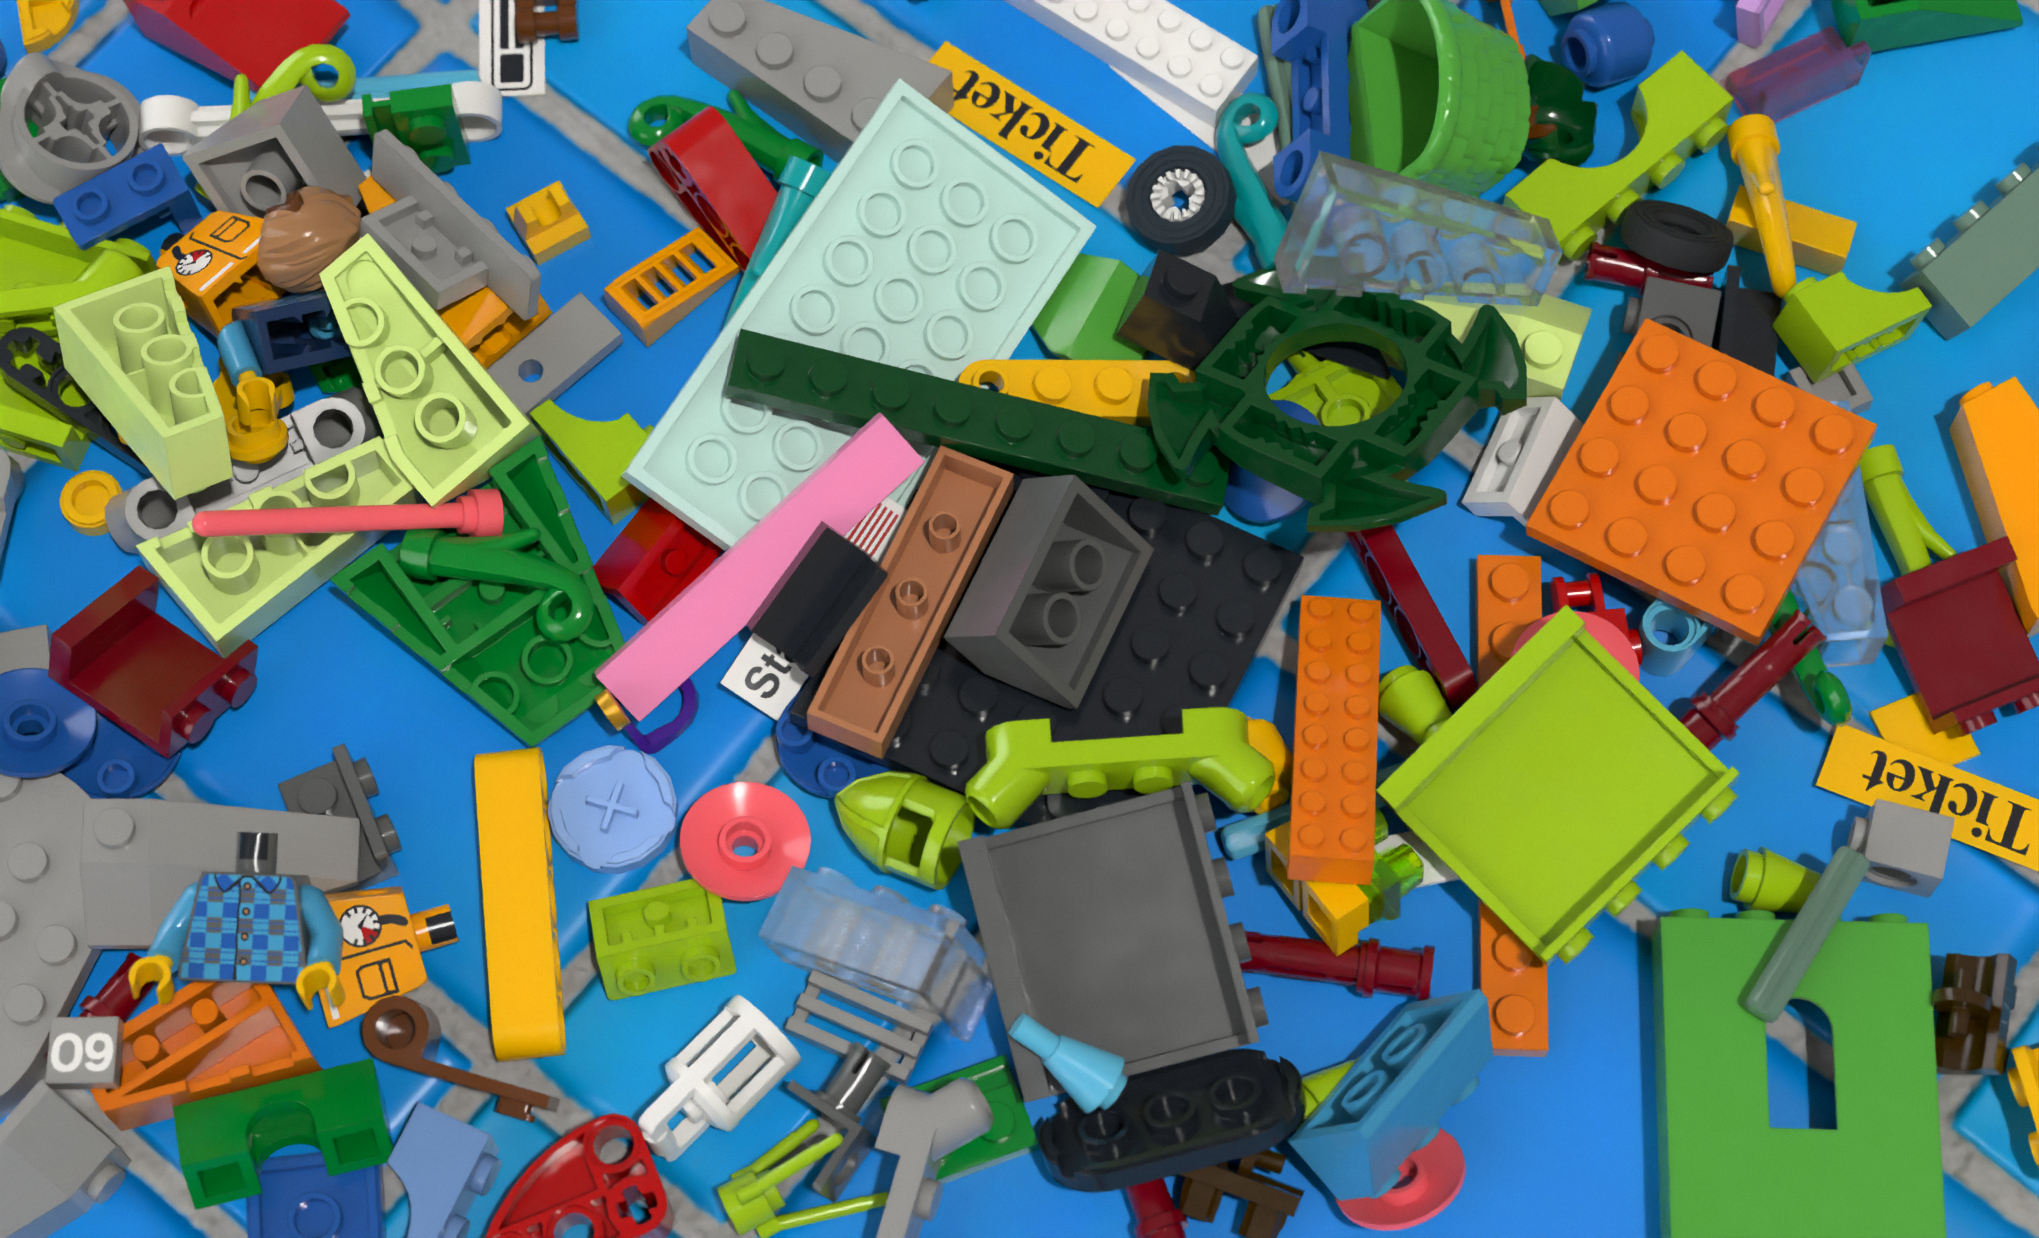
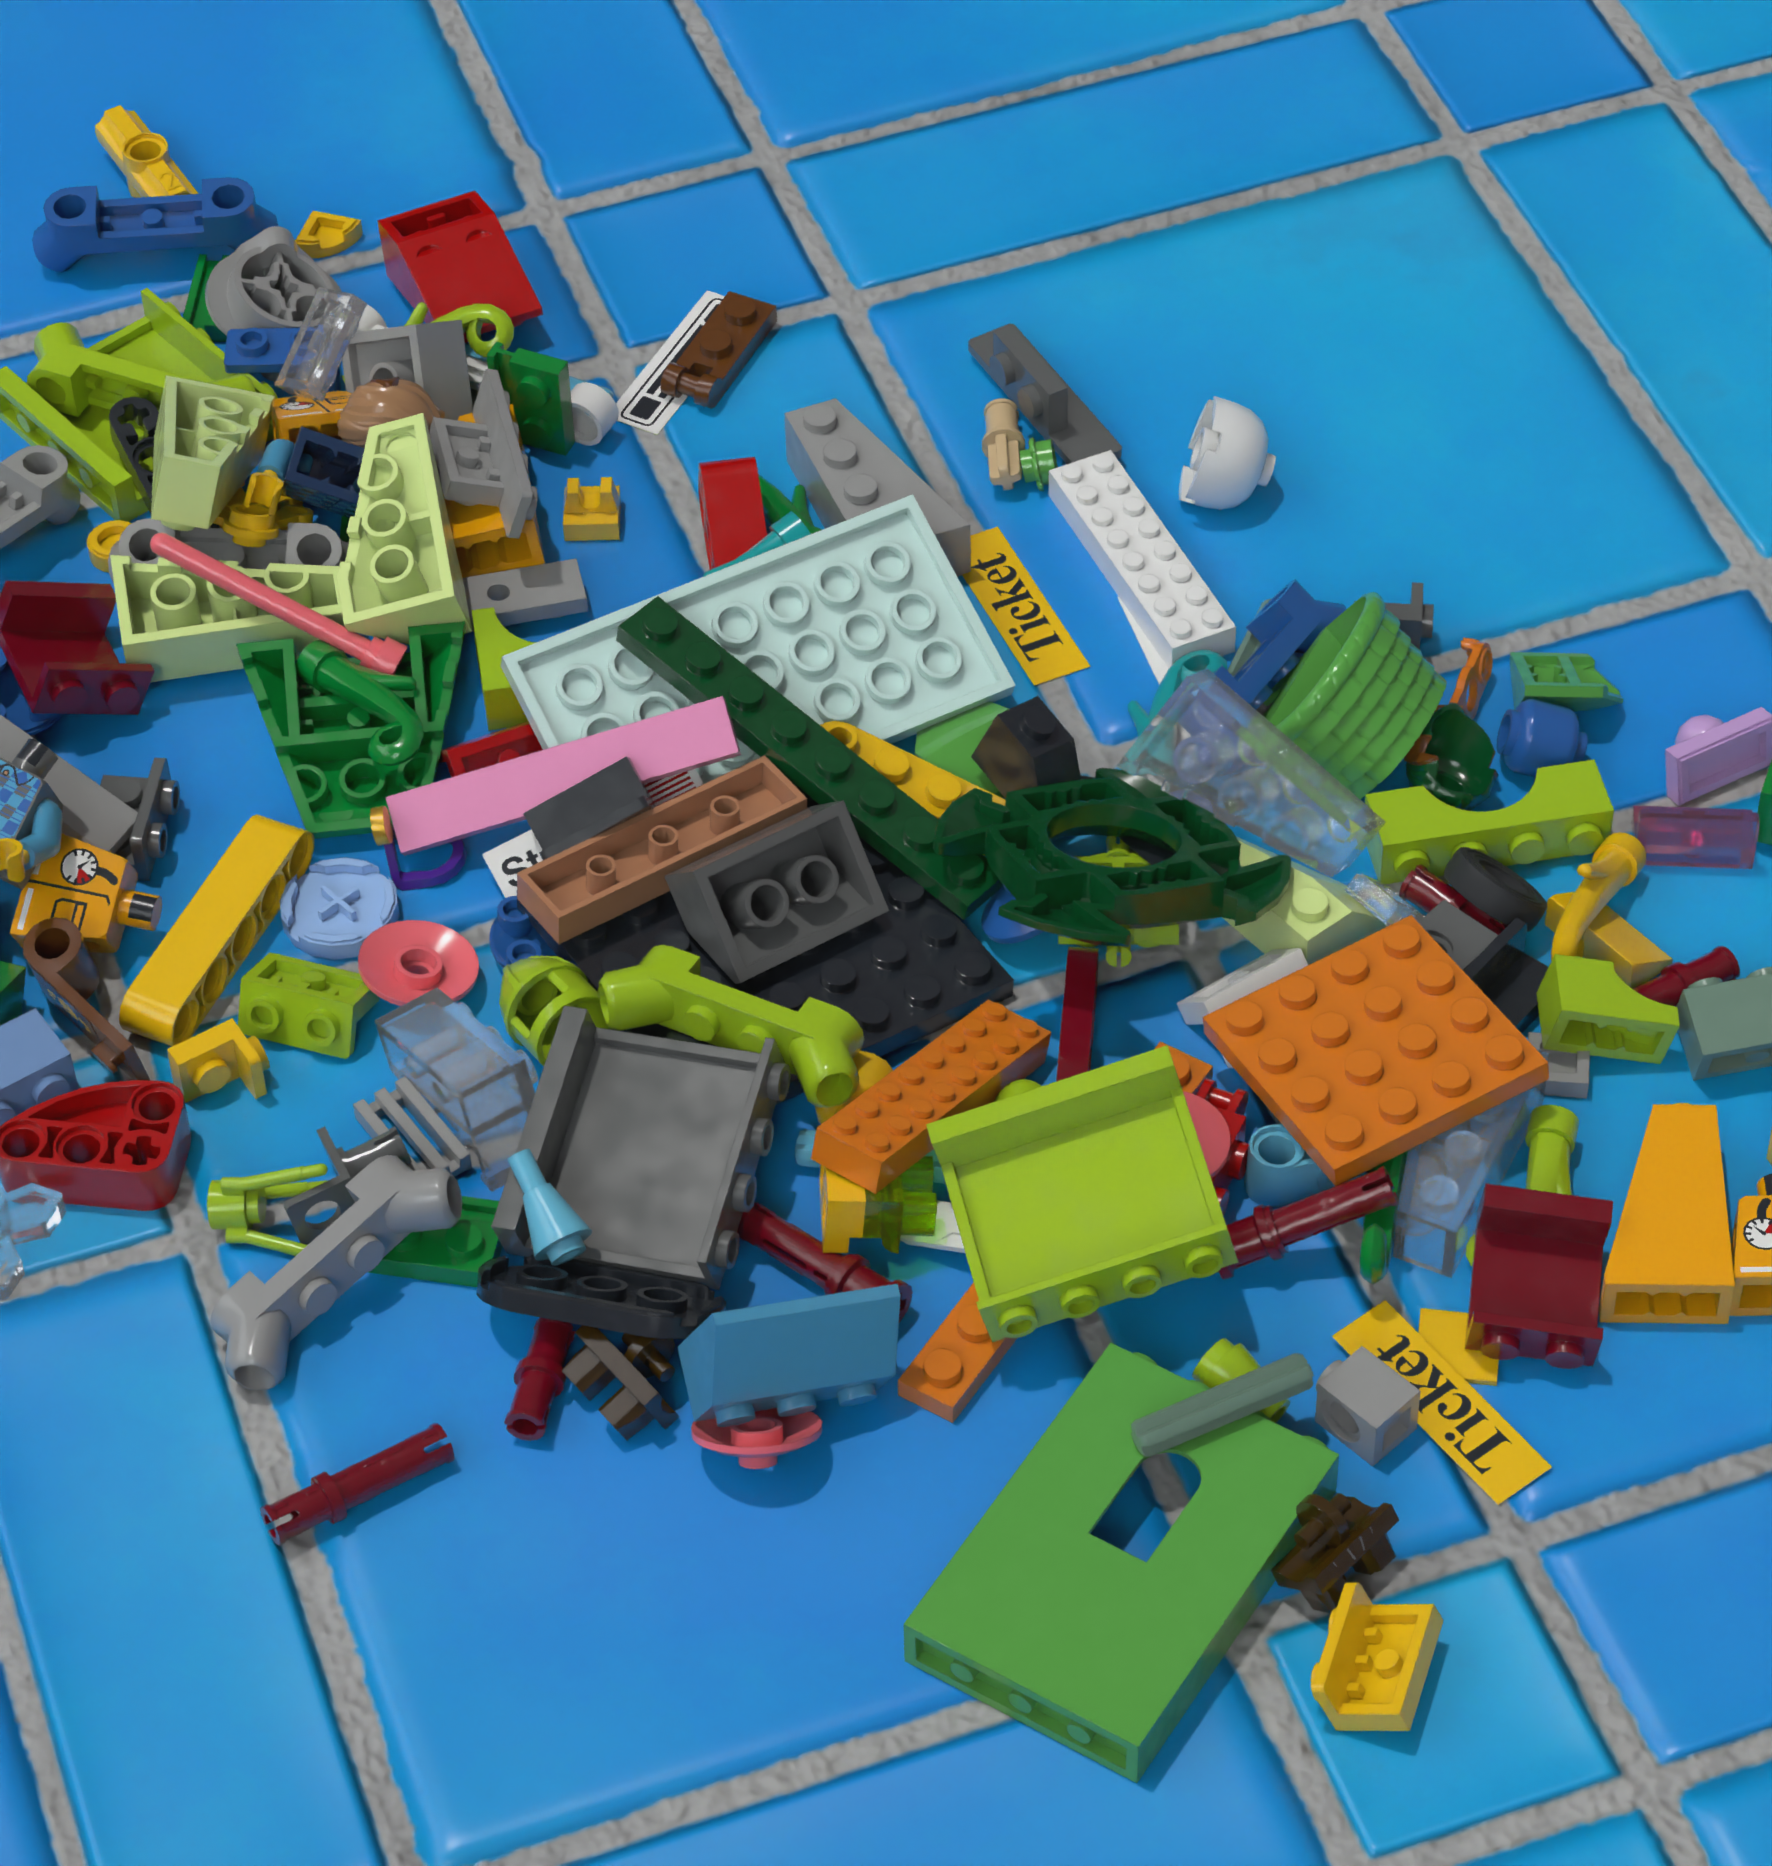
camera: 30 degrees right, 20 degrees down
(176, 181) = (321, 344): none -> clear plate
(618, 1058) = (217, 1058): none -> yellow bracket
(654, 322) = (634, 580): light orange slope -> none
(735, 1095) = (249, 1111): white piece -> none
(1151, 199) = (1078, 693): black bush -> none
(1582, 299) = (1380, 899): none -> clear tile
(1889, 248) = (1678, 976): none -> dark red pin

